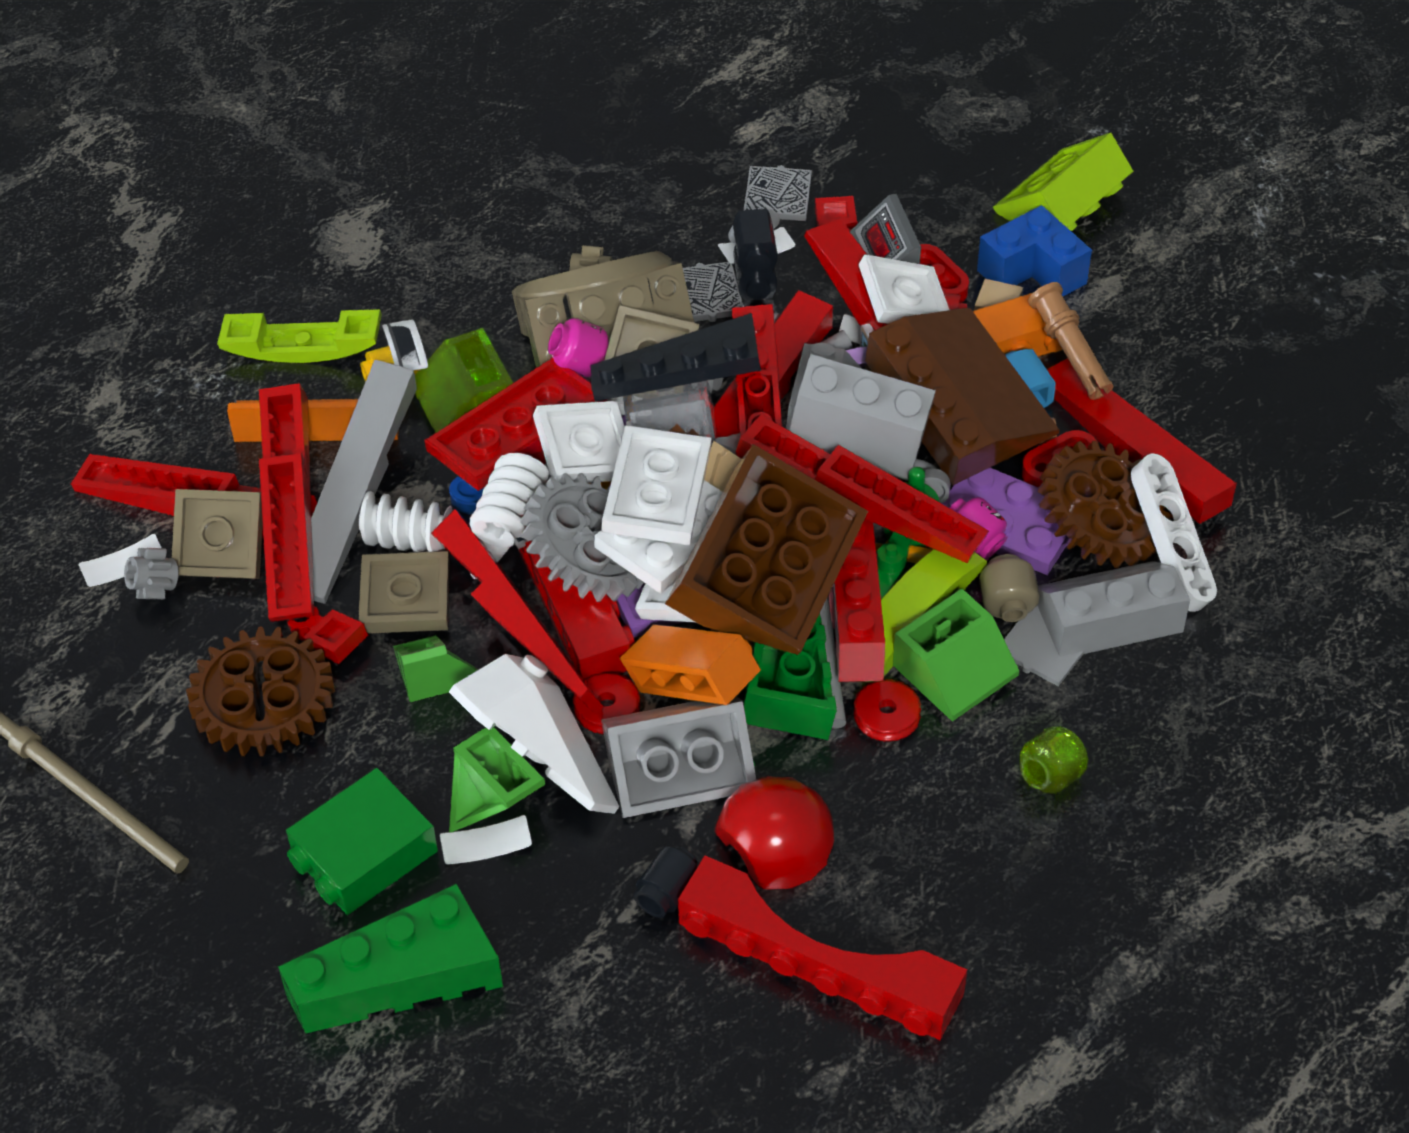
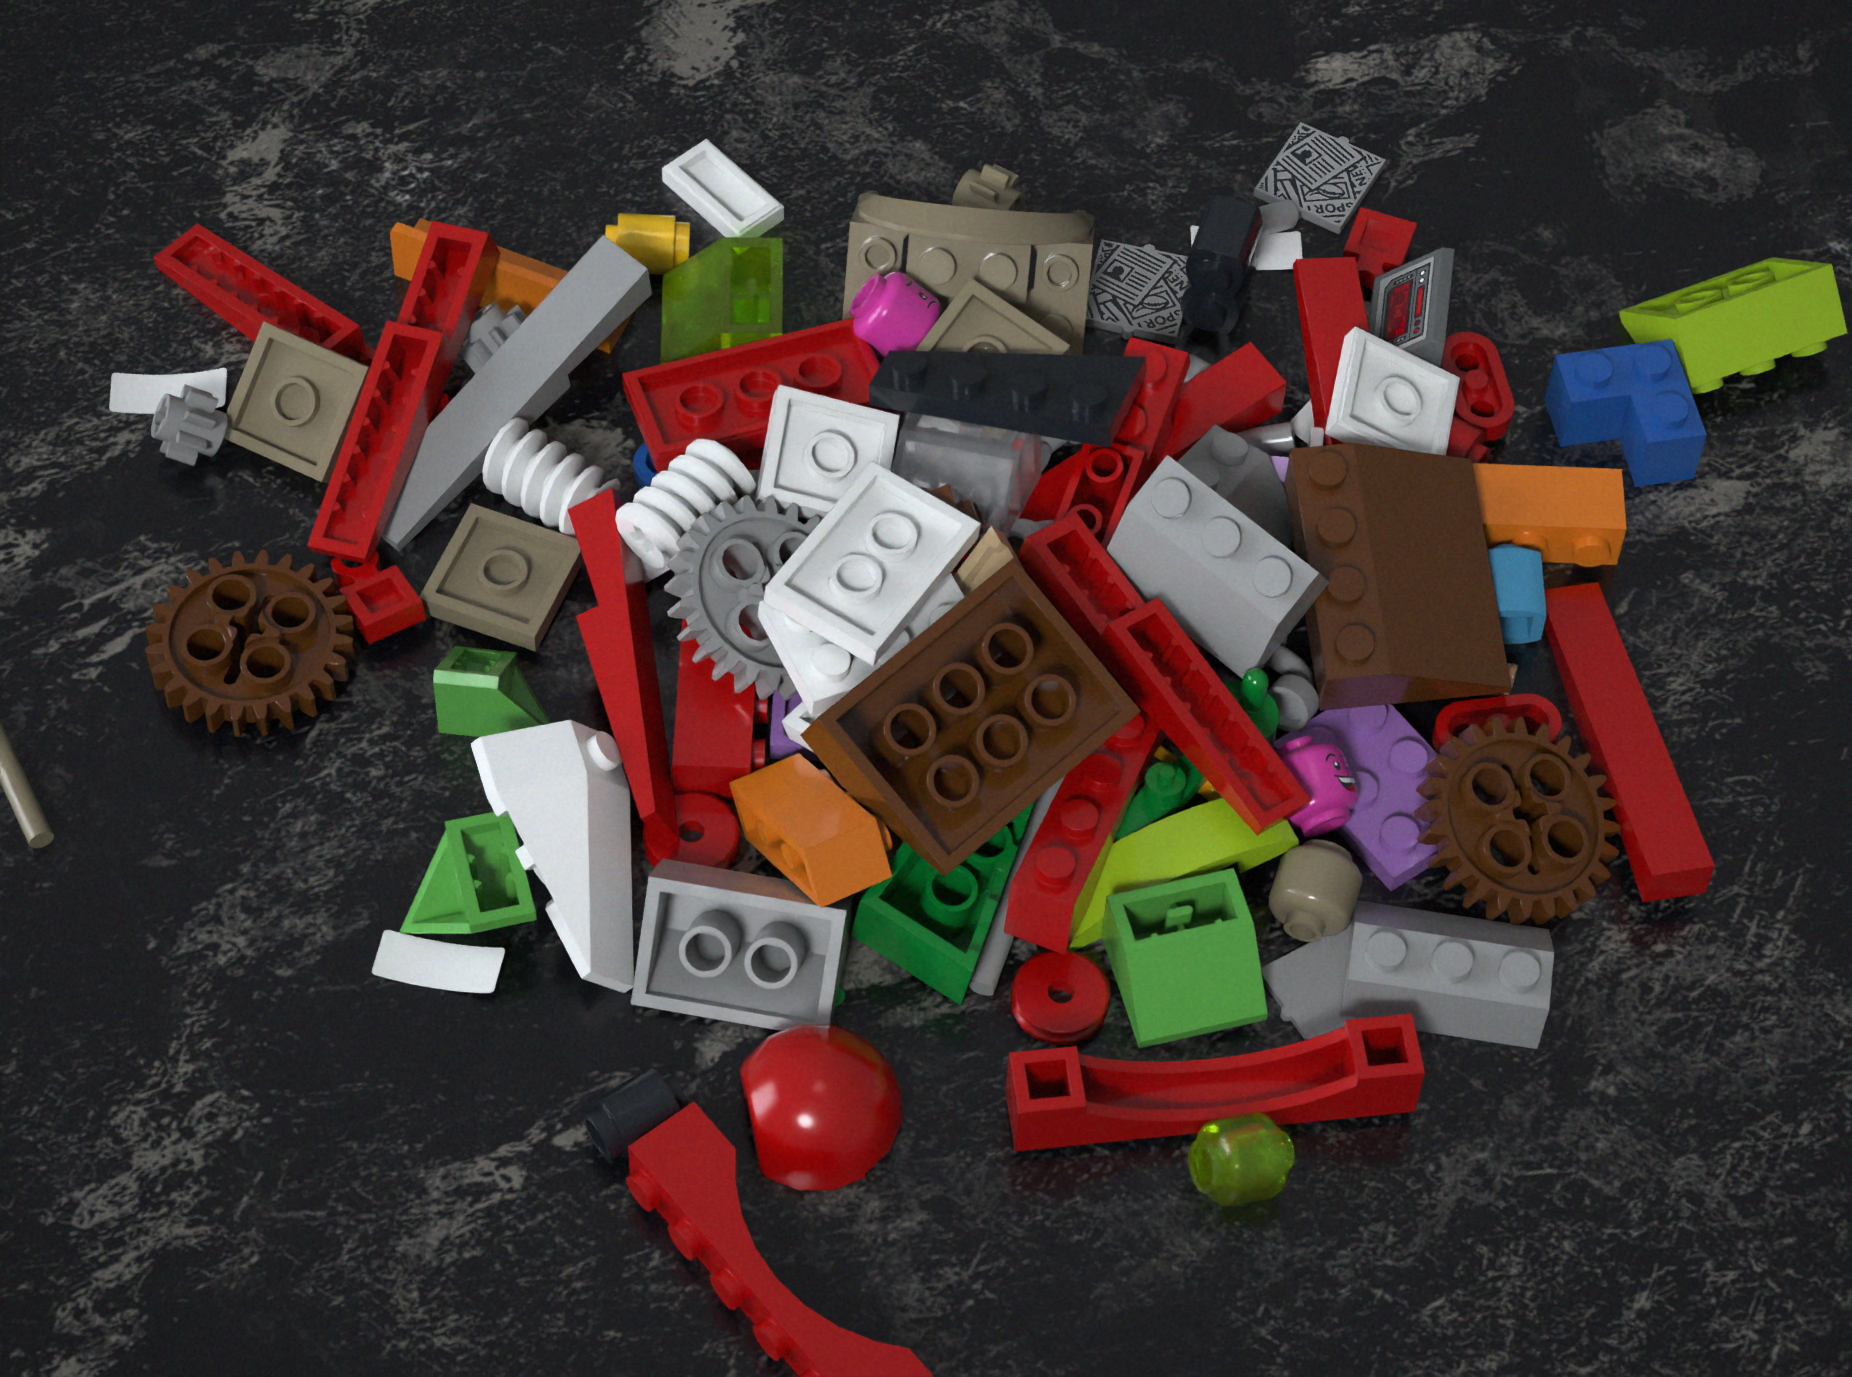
camera: 20 degrees right, 5 degrees up
(299, 342) = (544, 162): lime slope -> none
(323, 450) = (488, 333): none -> light grey gear
(360, 841) = (273, 900): green brick -> none
(392, 963) = (230, 1080): green wedge -> none
(405, 345) = (673, 223): sticker -> none
(431, 322) = (722, 192): none -> white tile
(941, 761) = (1084, 1099): none -> red arch
(996, 292) = (1546, 447): tan tile -> none
(1063, 326) = (1595, 535): medium nougat pin -> none
(1158, 485) = (1600, 903): white beam -> none

